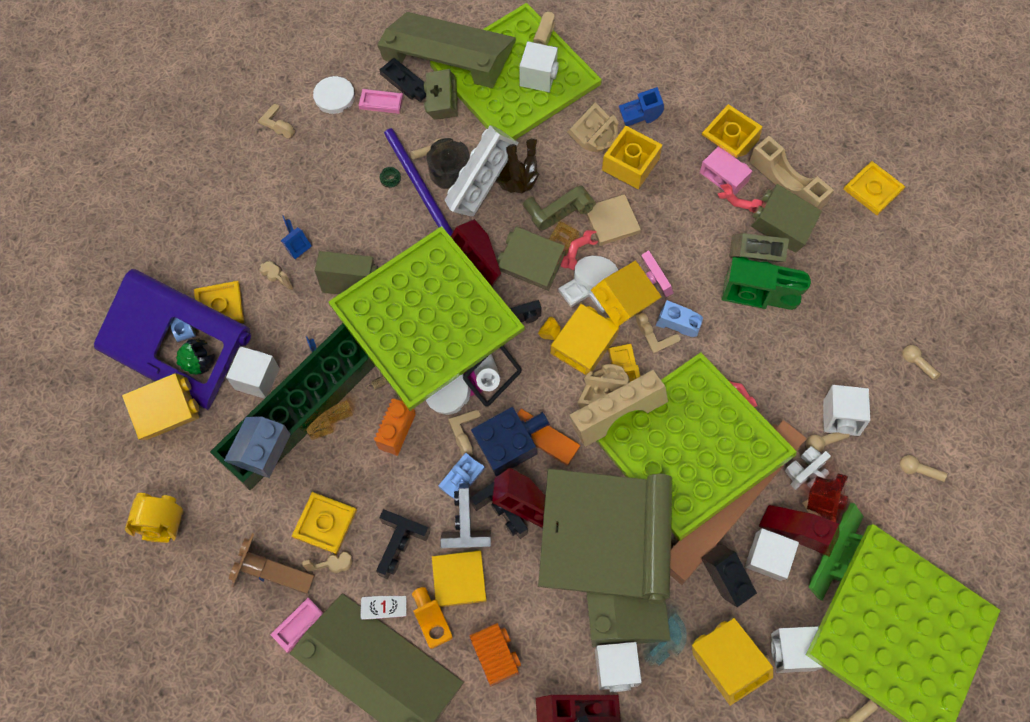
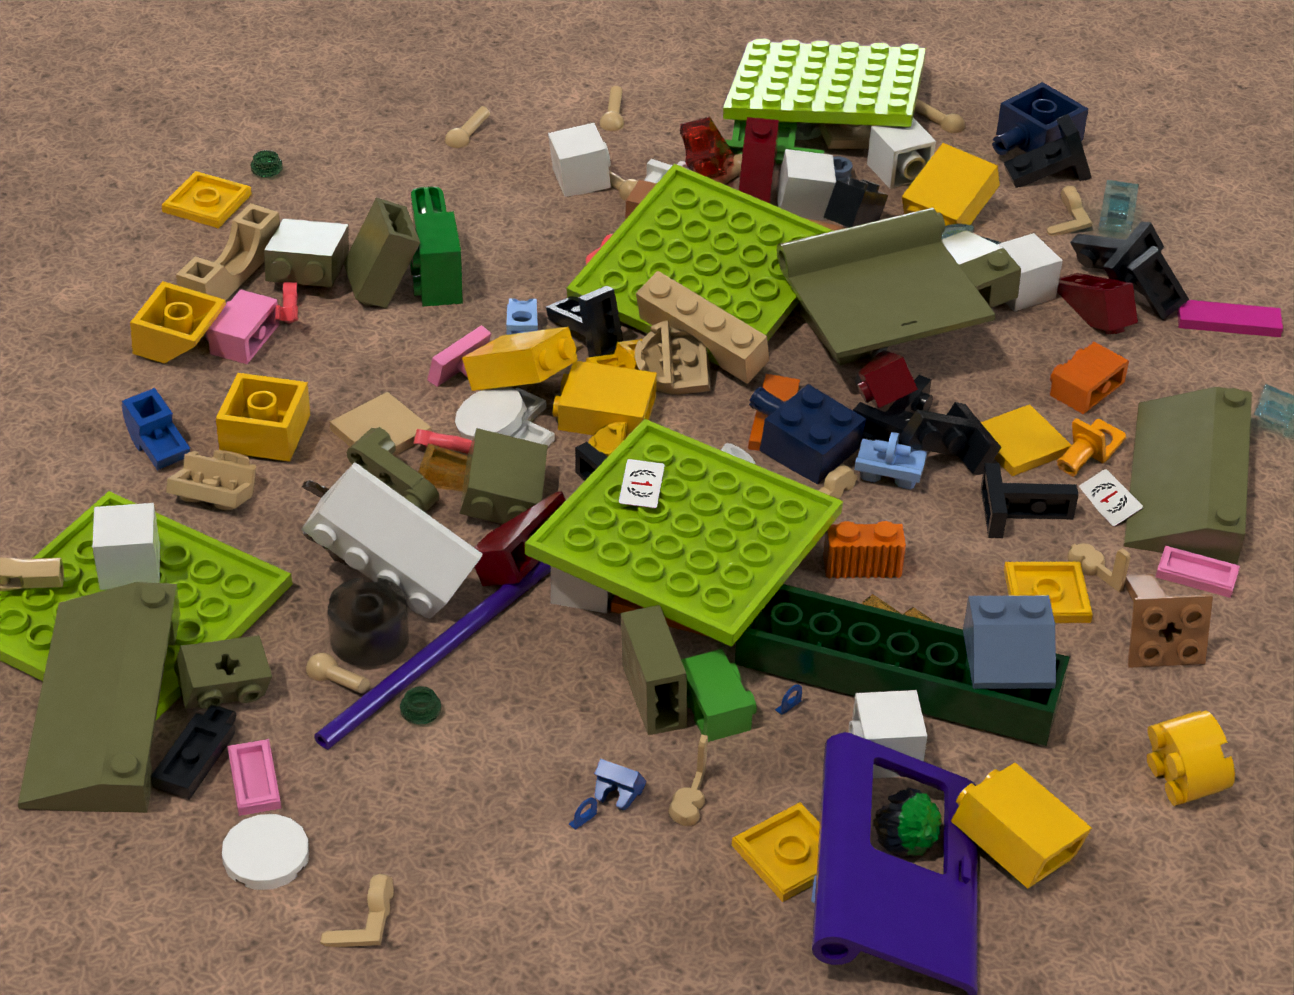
camera: 115 degrees left, 25 degrees down
(316, 306) = (717, 696): none -> bright green brick
(466, 302) = (641, 483): none -> white sticker
(663, 353) = (592, 316): none -> black bracket
(794, 605) = (842, 168): none -> sand blue bush
(904, 222) = (266, 164): none -> clear green plate

